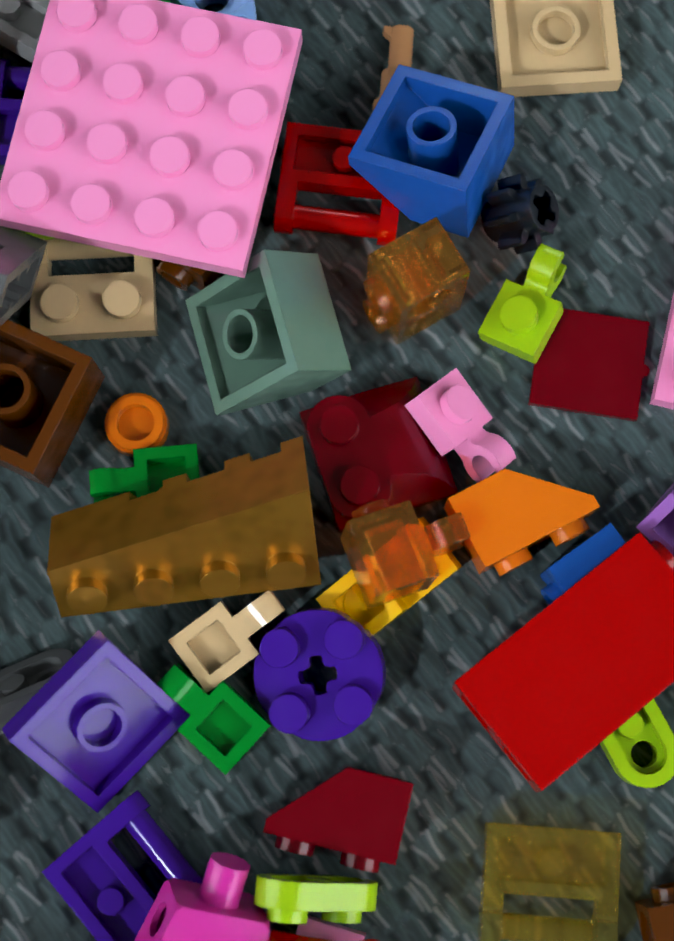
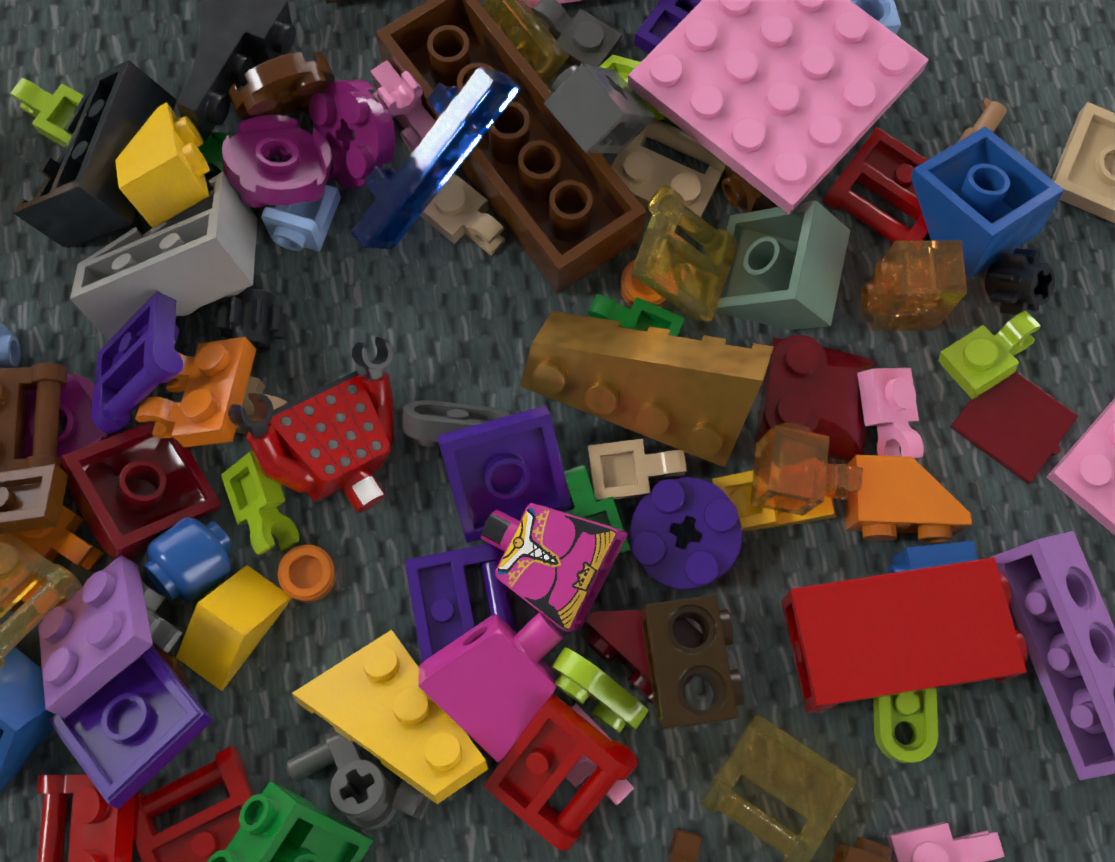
camera: 25 degrees right, 5 degrees down
(158, 398) = (676, 267): none -> clear yellow plate
(197, 787) = (554, 560): none -> torso
(377, 833) = (673, 663): none -> dark brown brick

